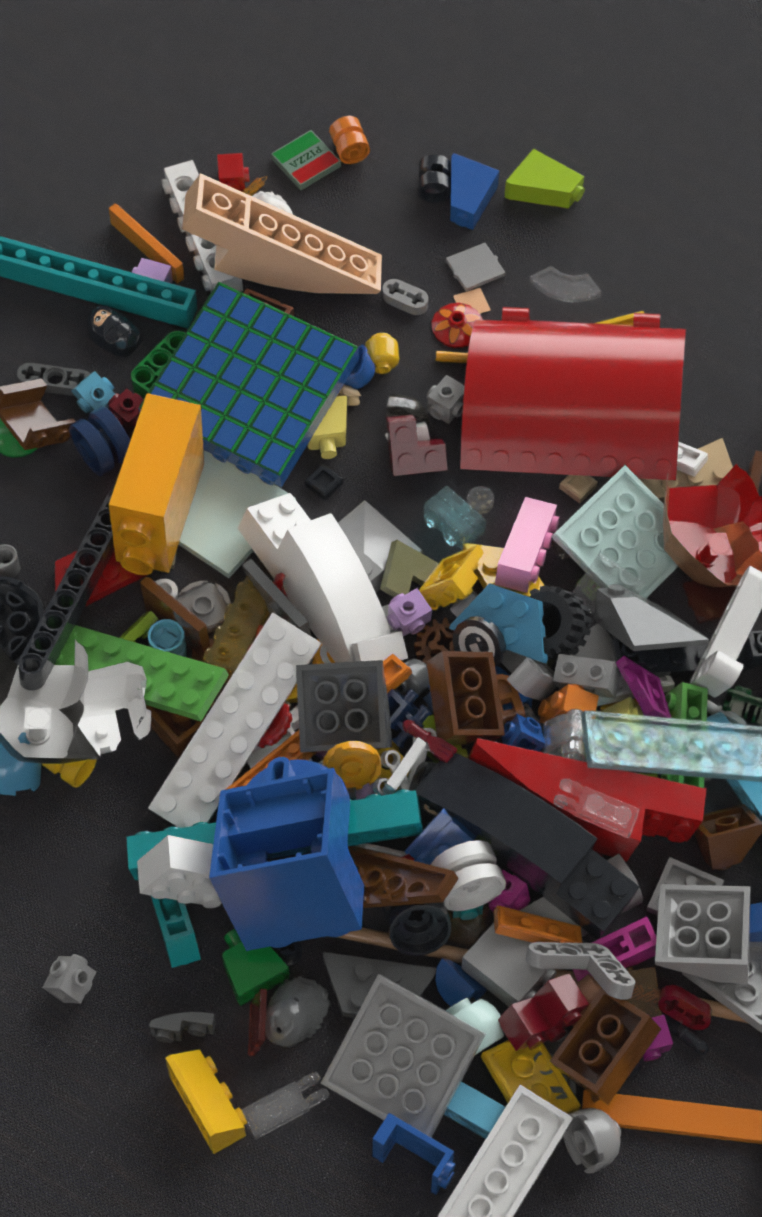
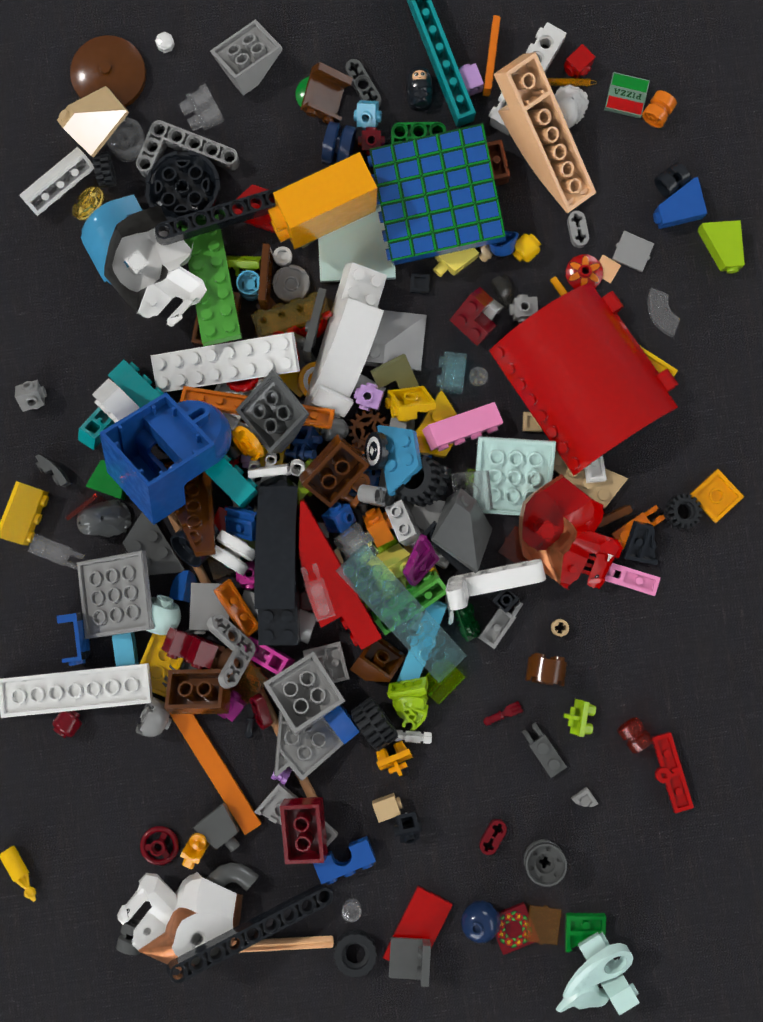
camera: 50 degrees right, 25 degrees up
(437, 746) = (293, 479): dark red piece -> none

